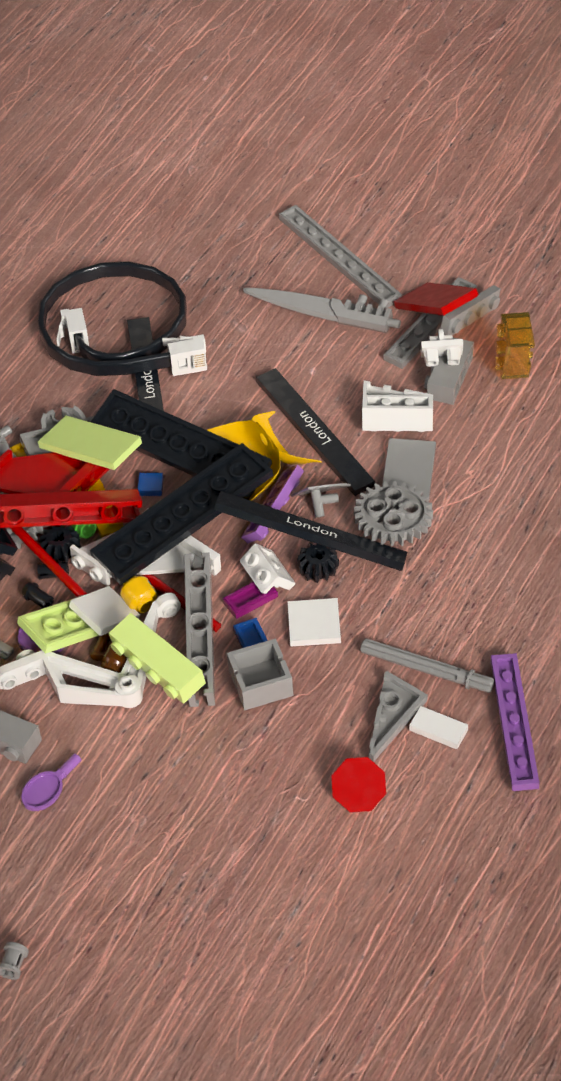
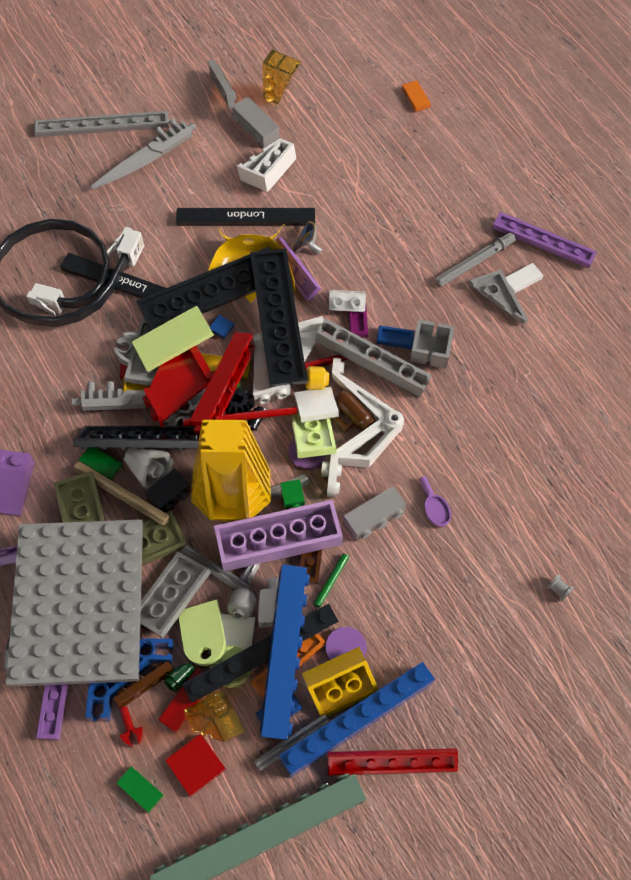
camera: 65 degrees left, 15 degrees up
(32, 592) = (273, 437): black pin -> none
(156, 658) = (391, 390): yellowish green brick -> none
(310, 531) = (341, 258): black tile -> none
(314, 622) = (402, 297): white tile -> none
(317, 562) = (359, 270): black gear -> none
(358, 784) = (544, 337): red piece -> none
(393, 513) = (342, 213): light grey gear -> none
(410, 342) = (203, 111): light grey tile -> none
(410, 463) = (323, 191): light grey tile -> none
(436, 298) = (197, 93): red tile -> none
(441, 346) = (253, 108): white hips -> none

